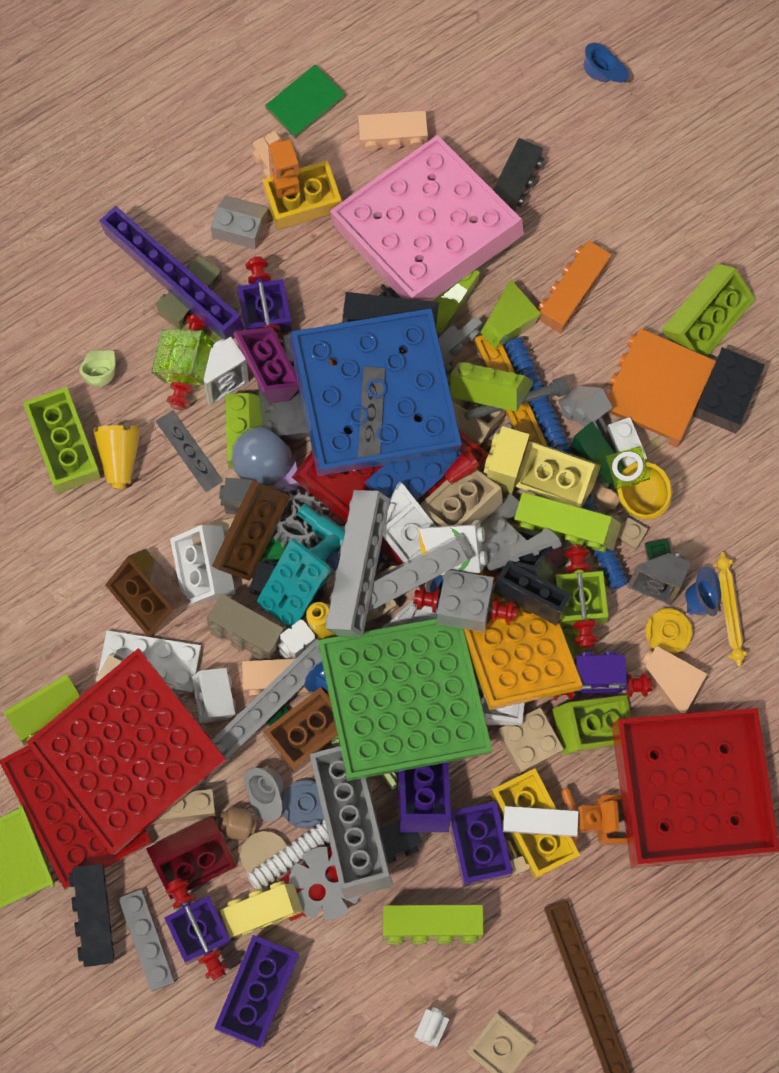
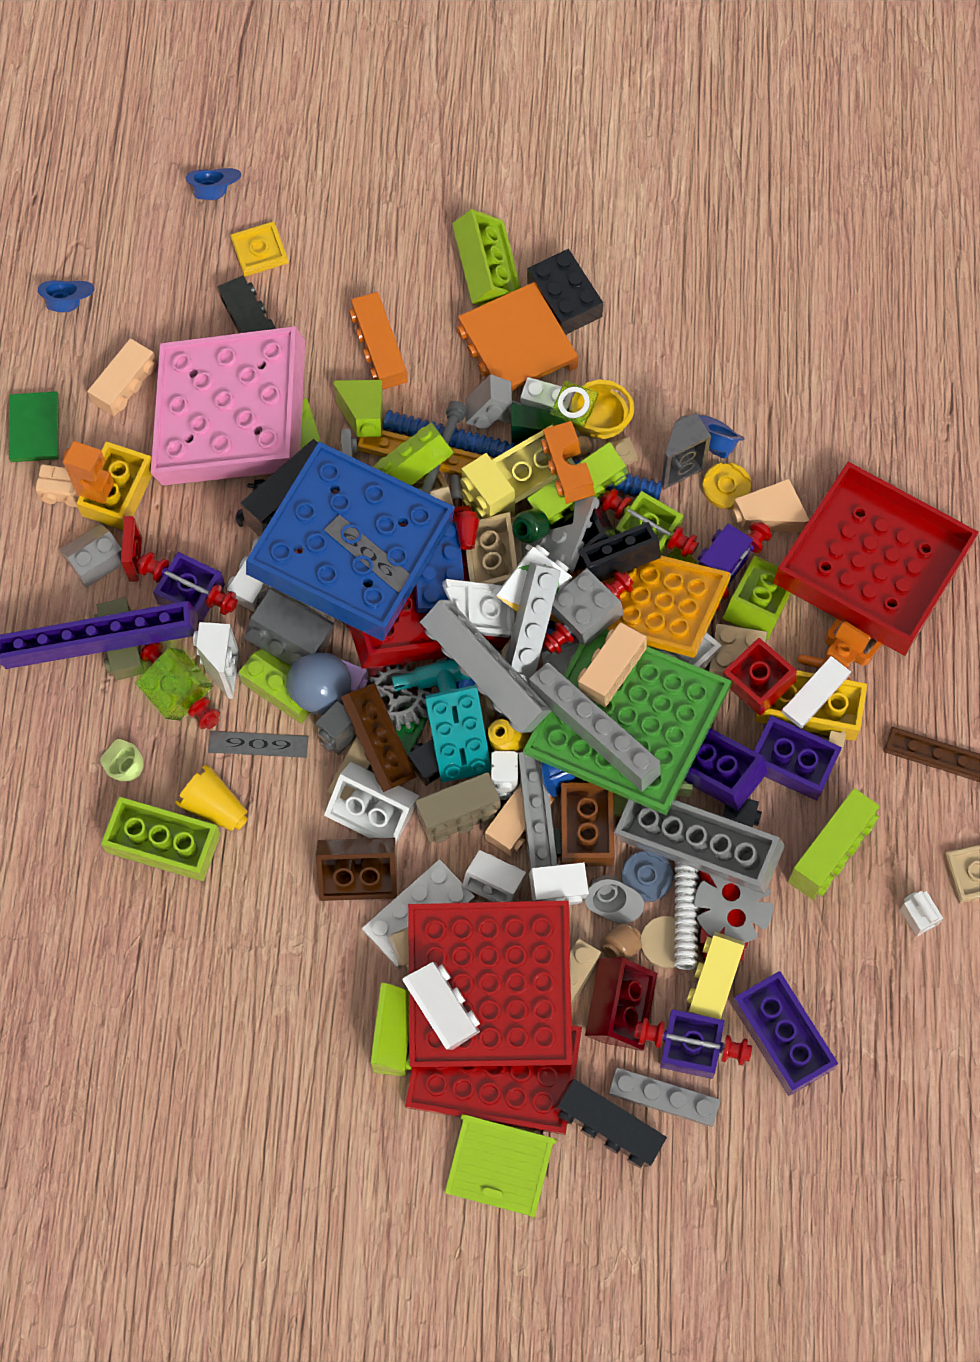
camera: 45 degrees left, 5 degrees down
(78, 728) = (442, 1005): none -> white slope
(238, 744) = (559, 883): none -> white brick
(261, 243) = (131, 548): none -> red tile
(268, 363) = (249, 611): magenta slope -> none
(372, 677) = (596, 727): none -> light grey brick
(423, 37) = (64, 295): none -> blue piece
(434, 653) = (612, 664): none -> light nougat brick
(501, 511) = (530, 525): none -> dark green head
(515, 769) = (760, 676): none -> red brick
(580, 142) = (259, 248): none -> yellow tile
(580, 483) = (573, 480): none -> orange arch
(657, 548) = (654, 444): dark green tile -> none
(731, 609) = (746, 425): yellow wheel -> none

